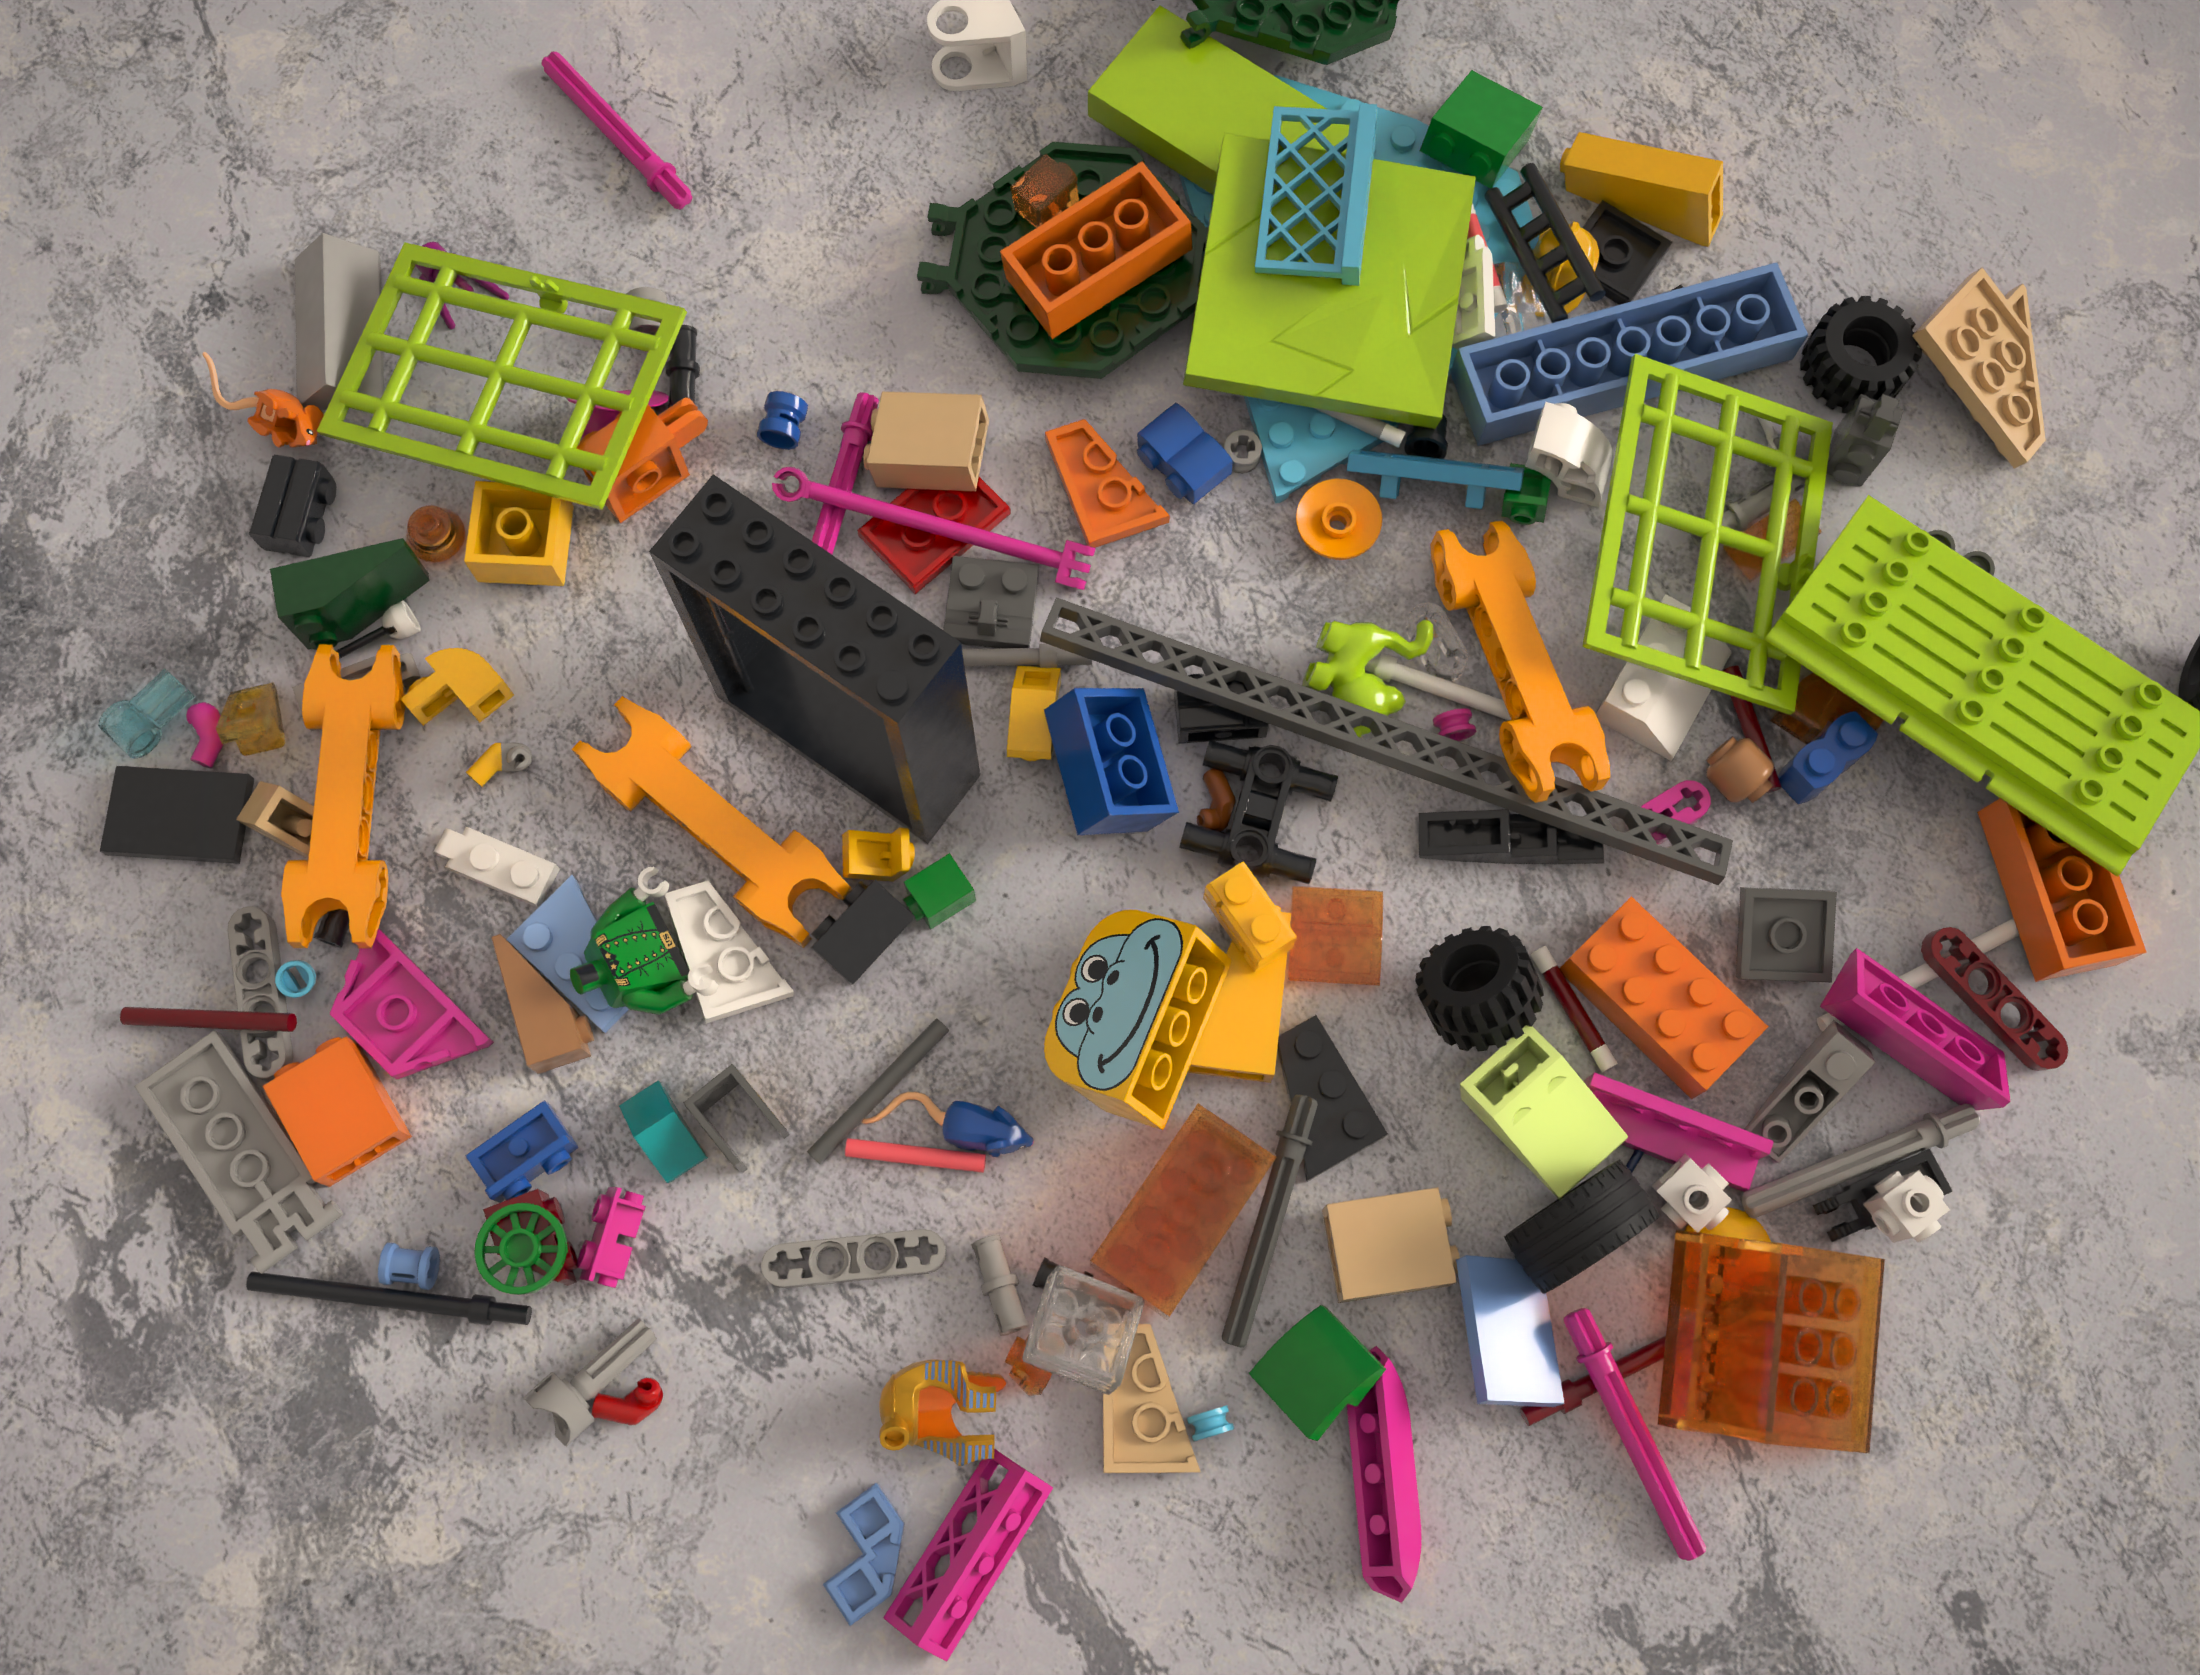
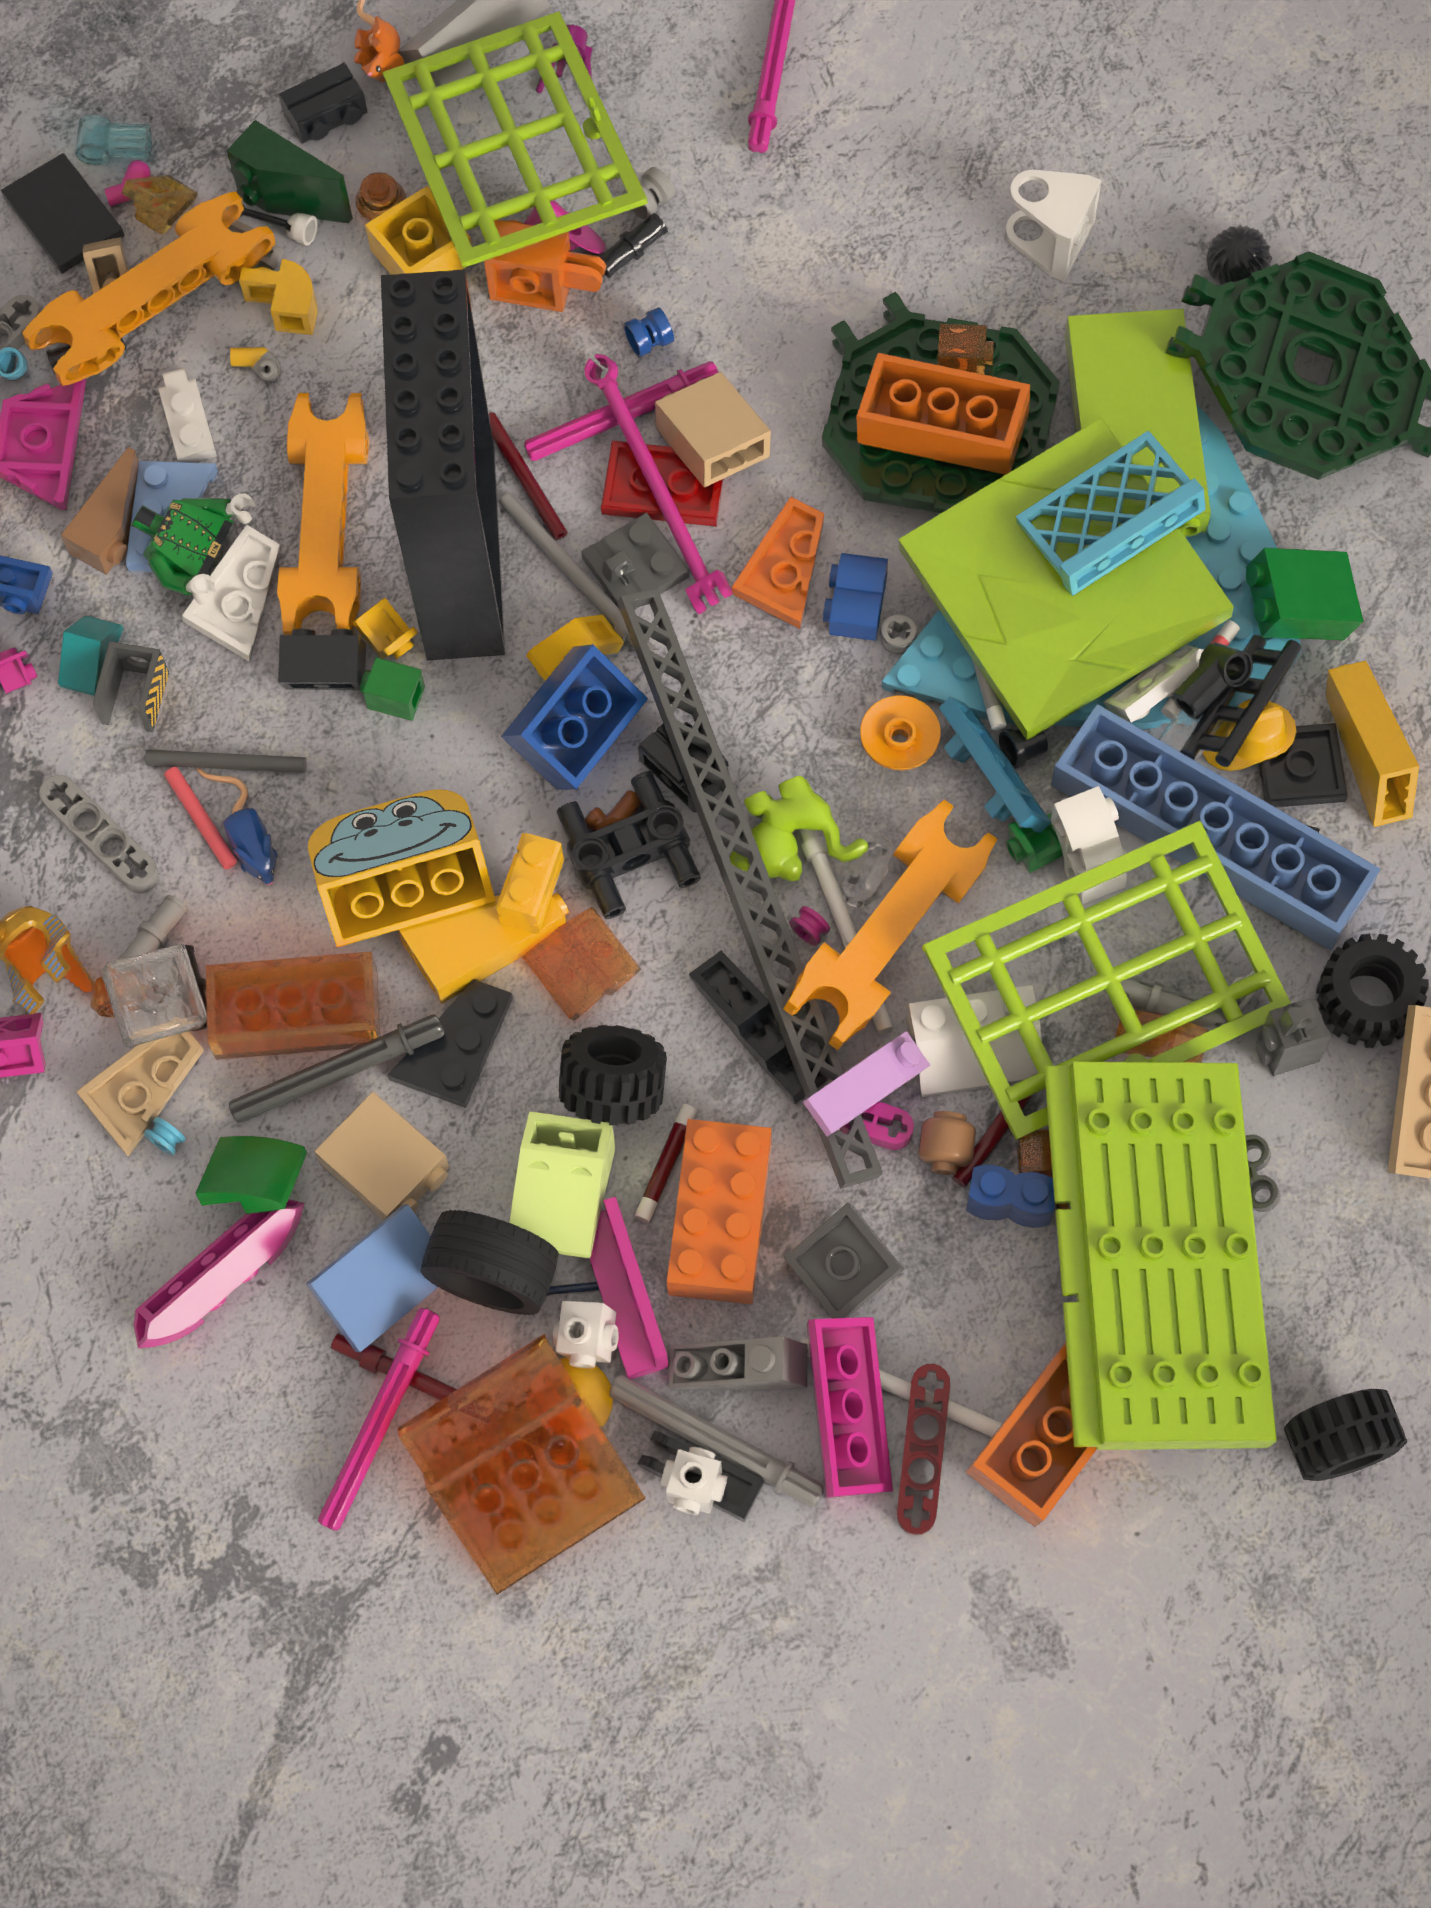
camera: 55 degrees right, 5 degrees down
(1509, 239) = (1217, 671): none -> black piece
(1652, 787) = (866, 1083): none -> lavender slope

